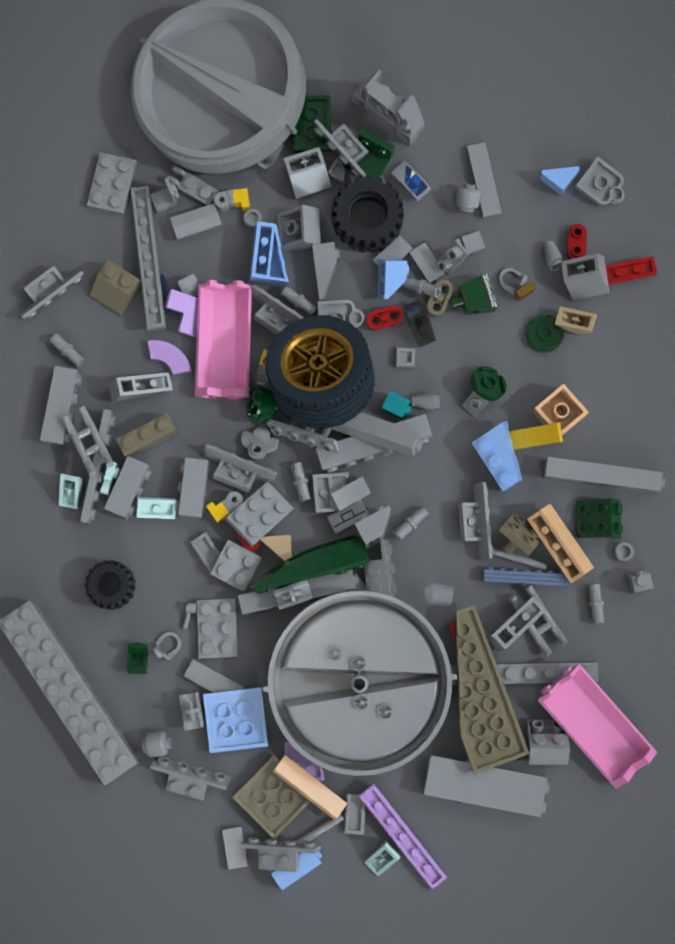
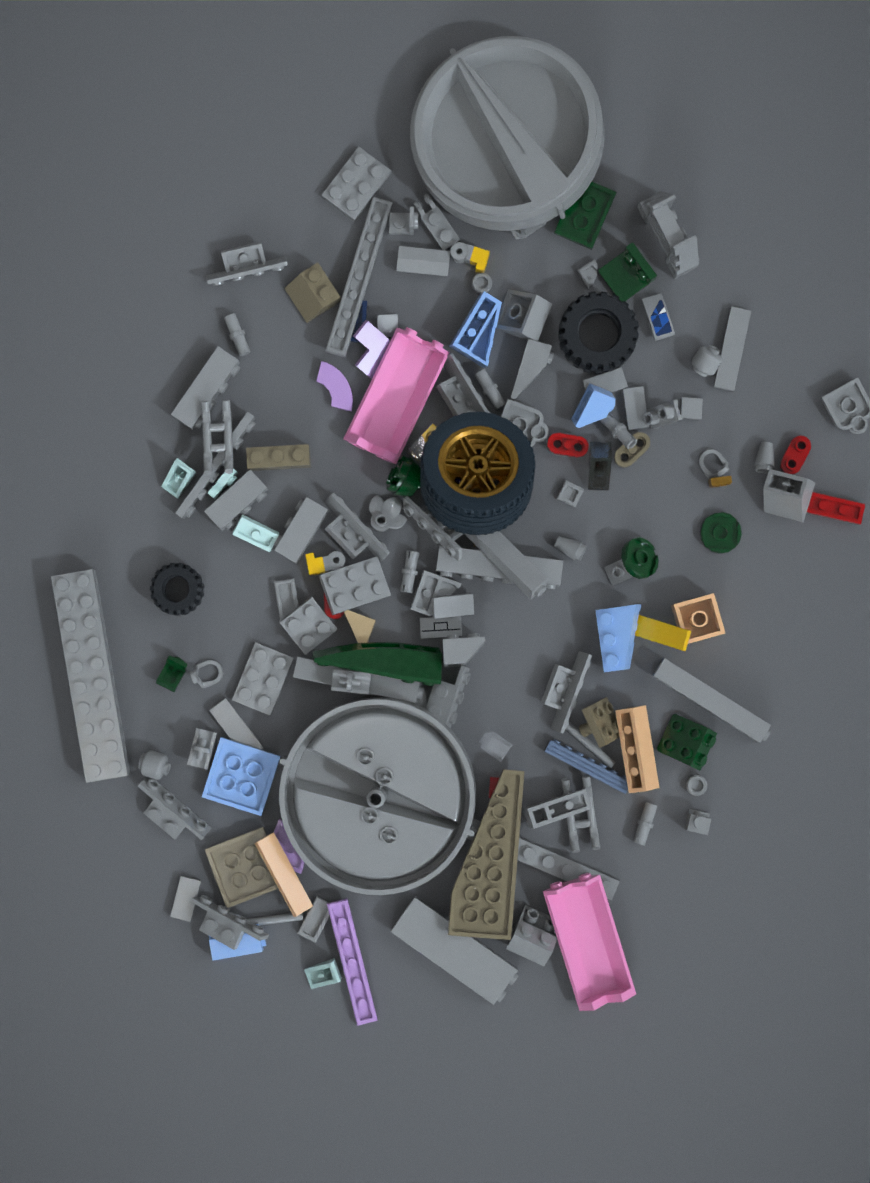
camera: 20 degrees right, 5 degrees up
(139, 386) = (293, 404): light grey slope -> none
(190, 608) = (245, 647): light grey hand -> none
(307, 173) = (557, 262): light grey slope -> none
(346, 145) = (609, 252): light grey bracket -> none
(396, 406) = (538, 539): teal brick -> none
(410, 523) = (499, 661): light grey pin -> none
(475, 296) = (668, 464): dark green torso -> none
(559, 178) = (808, 382): light blue slope -> none
(575, 320) = (756, 534): tan slope -> none

